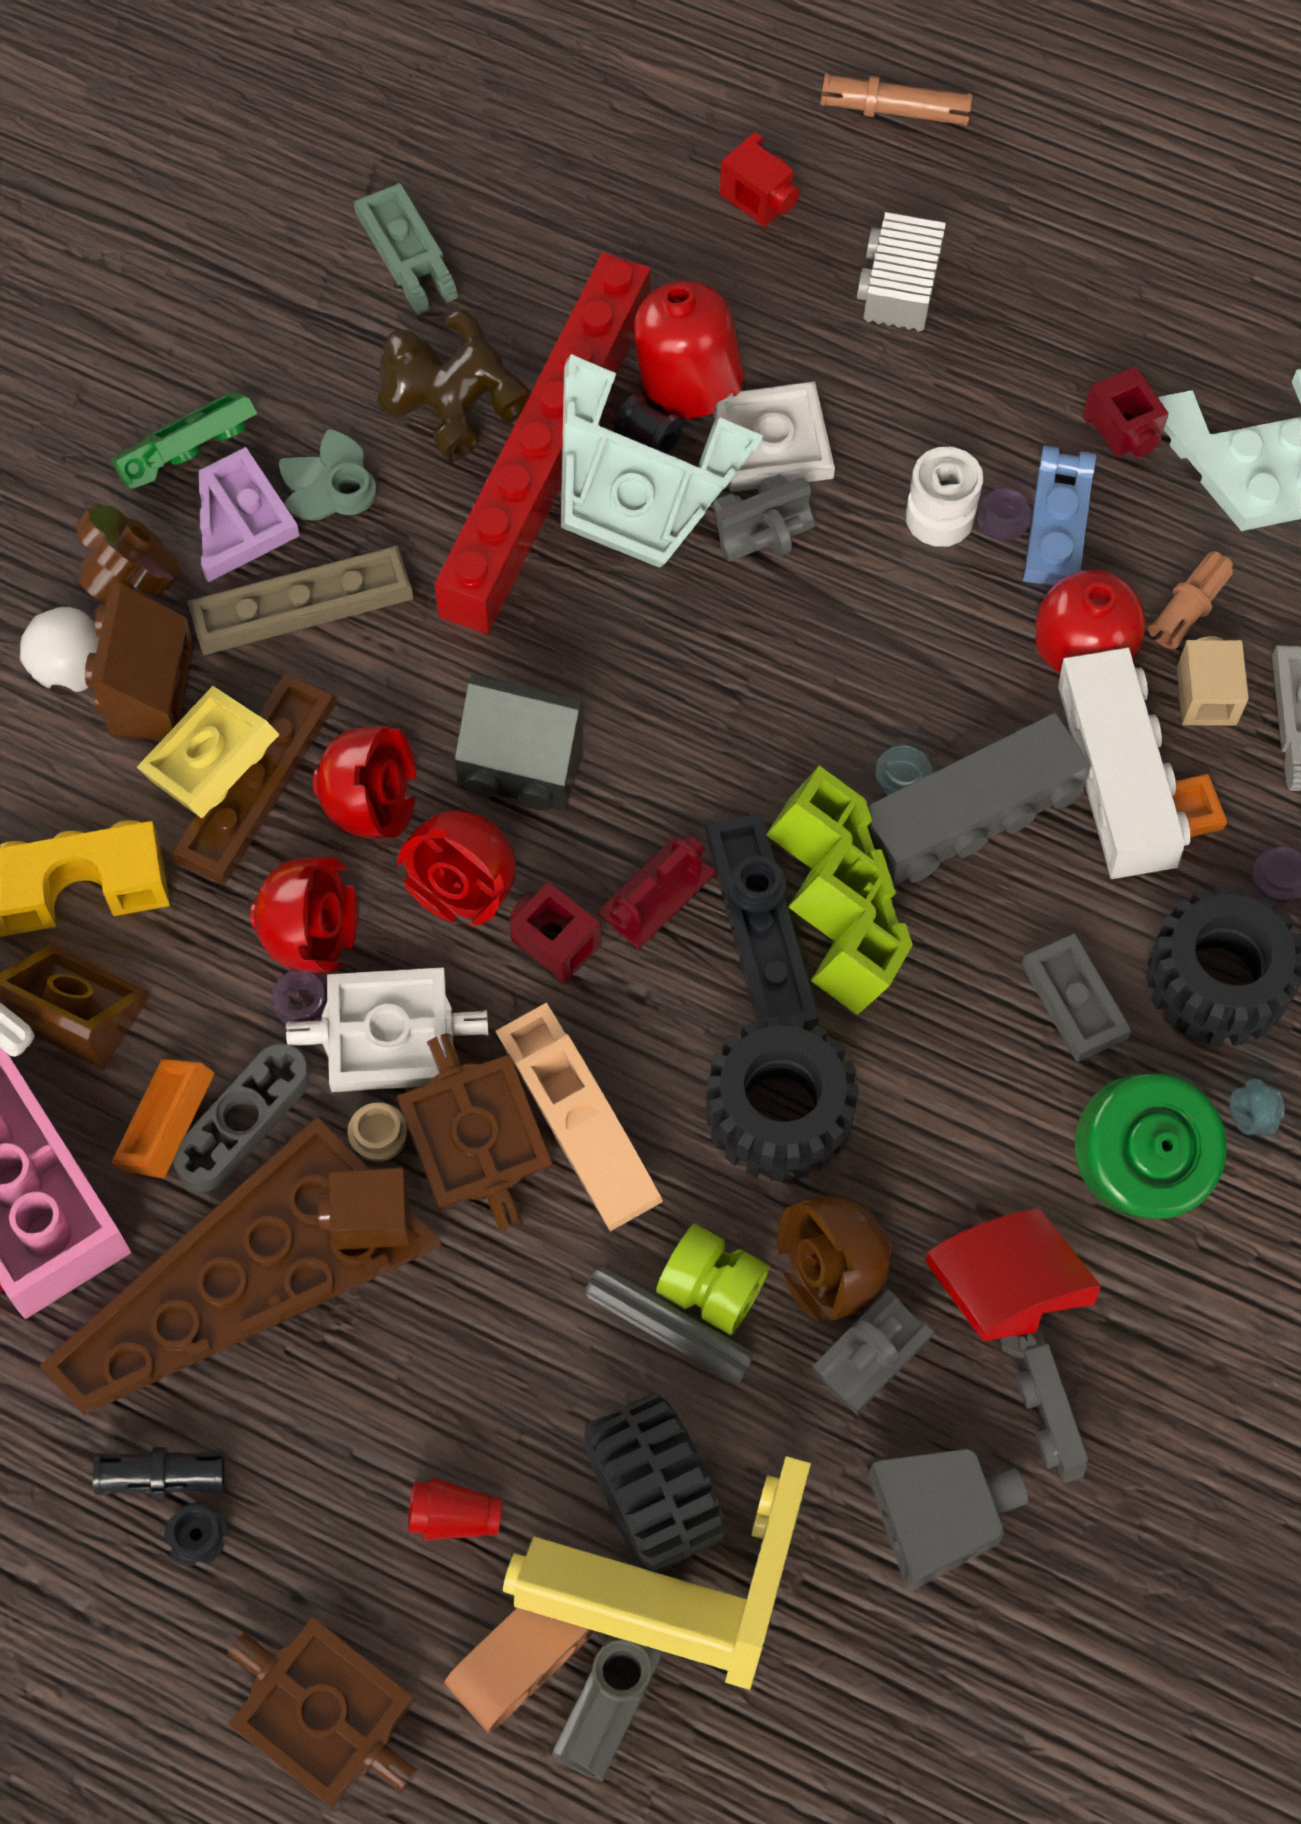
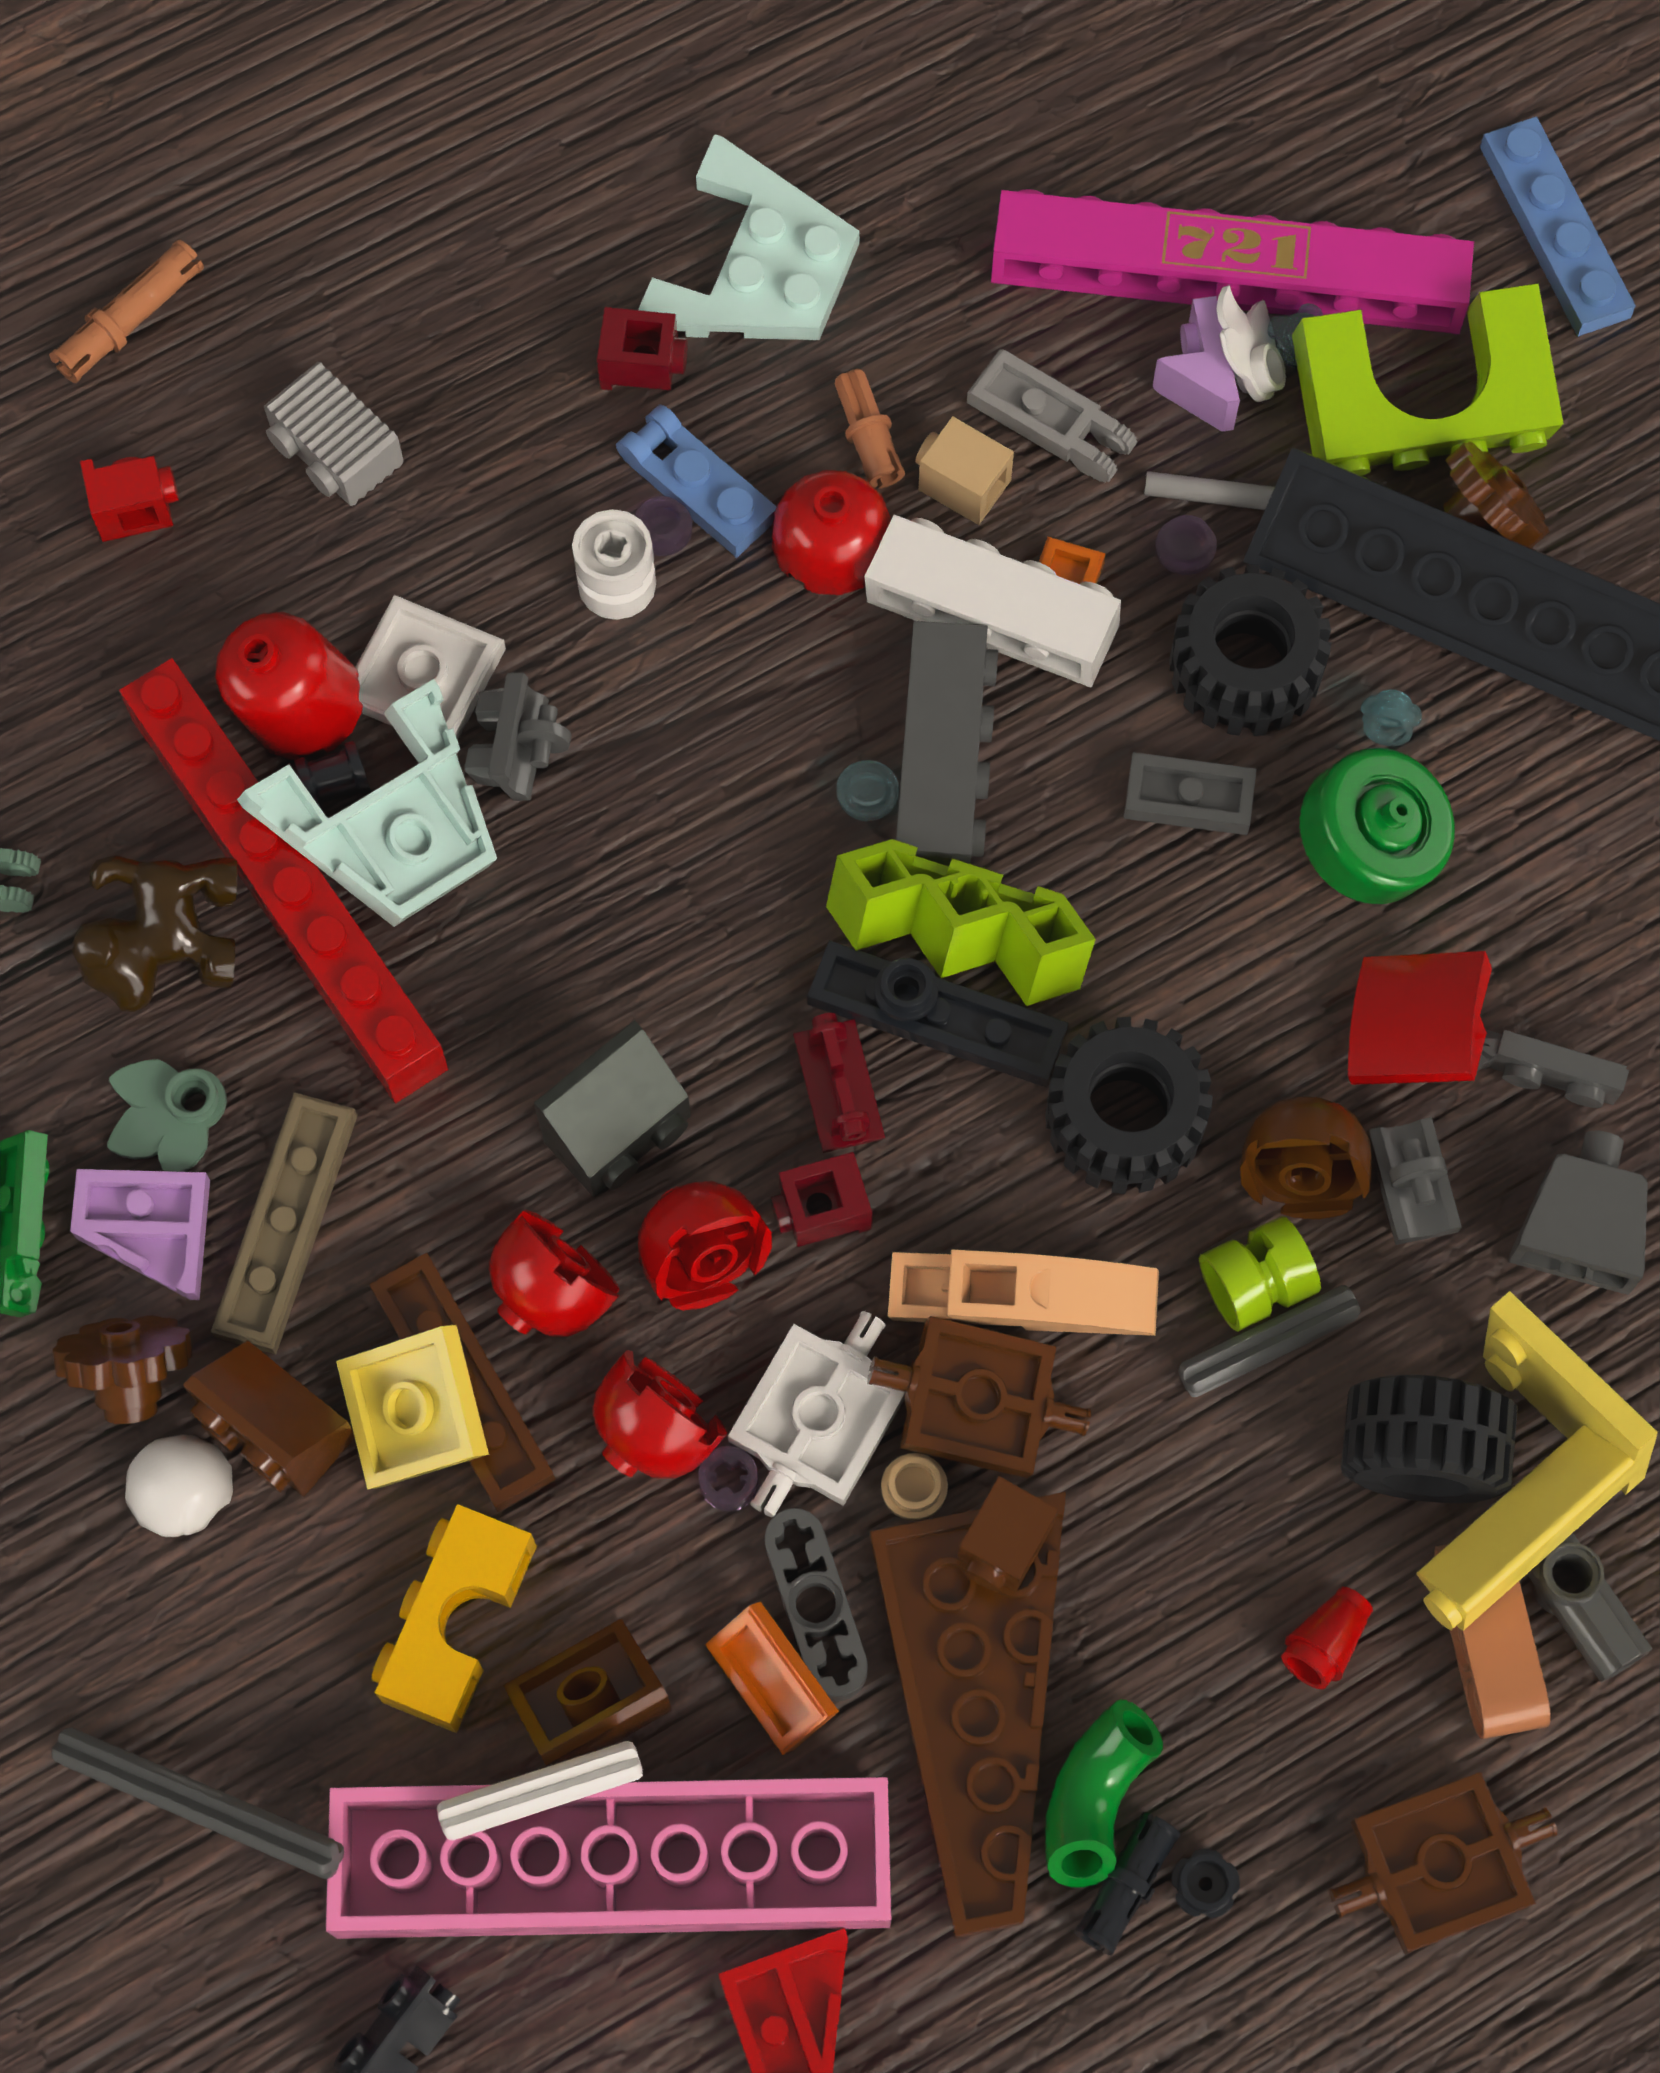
camera: 55 degrees left, 5 degrees up
(213, 1402) = (1090, 1792): none -> green cylinder

